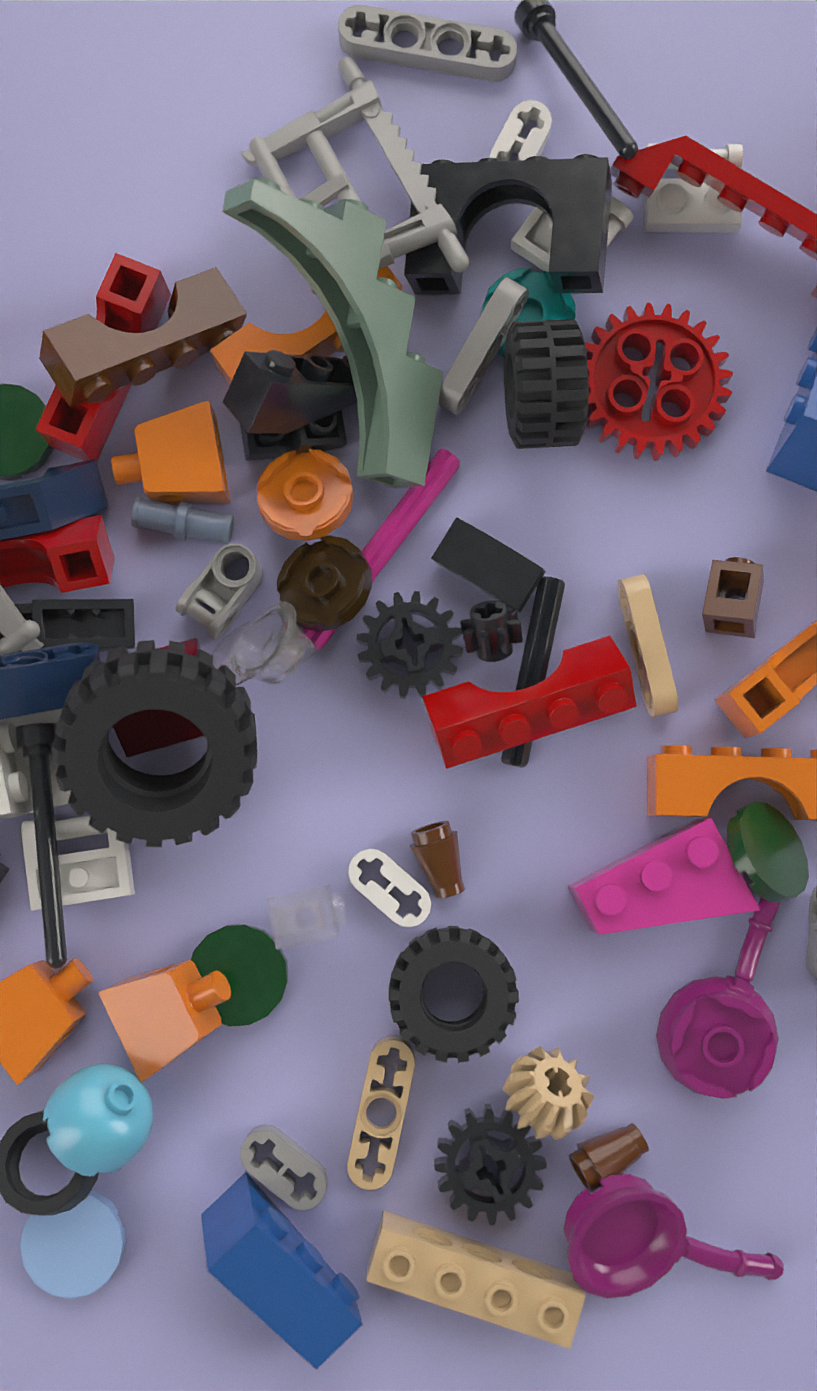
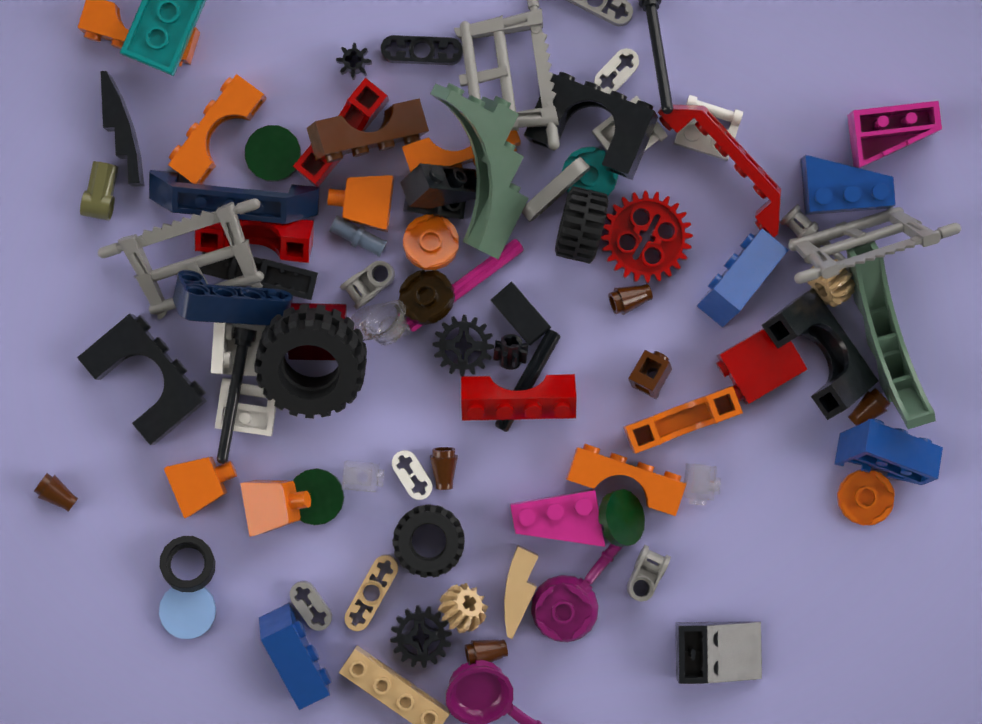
camera: 15 degrees right, 5 degrees up
(87, 235) = (347, 56): none -> black gear
(98, 1119) = (223, 548): medium azure cylinder -> none
(183, 190) = (400, 55): none -> black beam
(631, 1030) = (518, 590): none -> tan slope
(647, 645) = (594, 385): tan beam -> none
(655, 488) = (628, 298): none -> reddish brown cone

